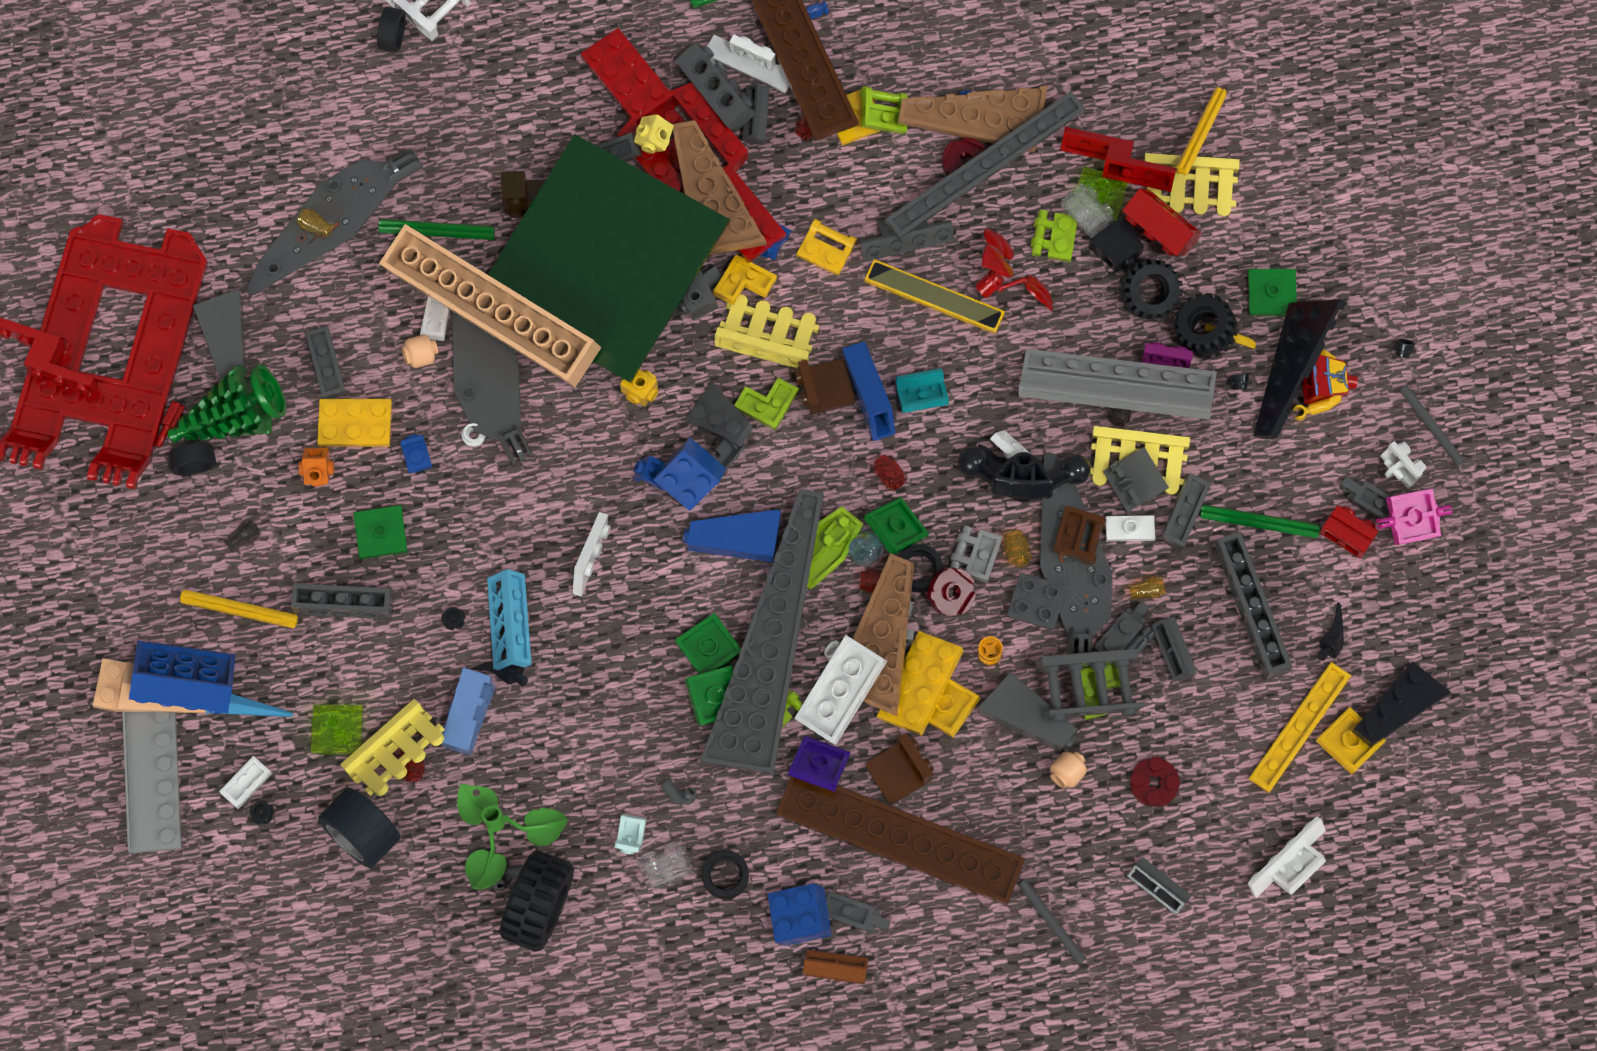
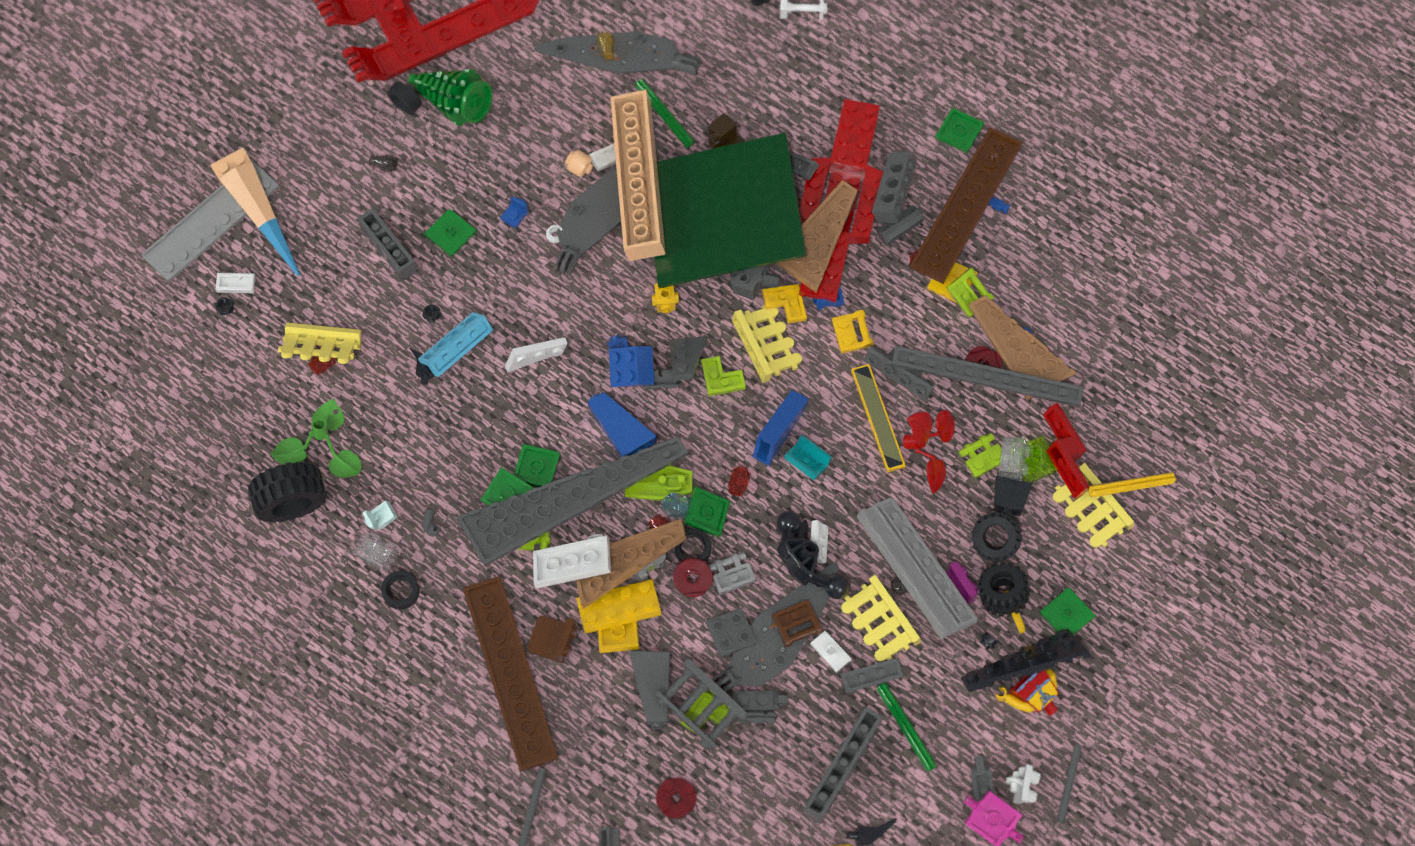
camera: 50 degrees right, 5 degrees down
(169, 421) = (424, 68): red axle -> none
(182, 677) = (265, 195): blue slope -> none
(224, 330) = (499, 52): dark grey slope -> none
(239, 609) = (338, 196): yellow axle -> none
(316, 466) = (458, 165): orange brick -> none
(325, 362) = (527, 121): dark grey plate -> none
(336, 729) = (308, 304): clear neon green plate -> none
(354, 422) = (505, 165): yellow plate -> none
(359, 827) = (253, 361): black wheel -> none
(467, 711) = (378, 365): medium blue wedge -> none
(653, 134) = (826, 174): light yellow brick -> none
(749, 60) = (929, 190): white bracket -> none
(799, 914) = (408, 651): blue brick -> none
(819, 763) = (515, 587): dark purple plate -> none
(825, 386) = (759, 399): reddish brown bracket -> none
(835, 966) = (395, 700): dark orange piece -> none
(855, 913) = (437, 683): dark grey hinge -> none
(990, 646) = (675, 626): light orange wheel -> none
(1017, 548) = (756, 594): clear yellow brick -> none
(1068, 769) = (638, 737): light nougat head -> none
(1135, 479) = (864, 628): dark grey hinge -> none
(1148, 588) = (800, 693): clear yellow cone -> none
(1161, 223) = (1047, 508): red brick -> none
(1174, 649) = (773, 740): dark grey piece -> none
(1349, 531) = (948, 786): red brick -> none
(1404, 348) = (1104, 724): black plate -> none

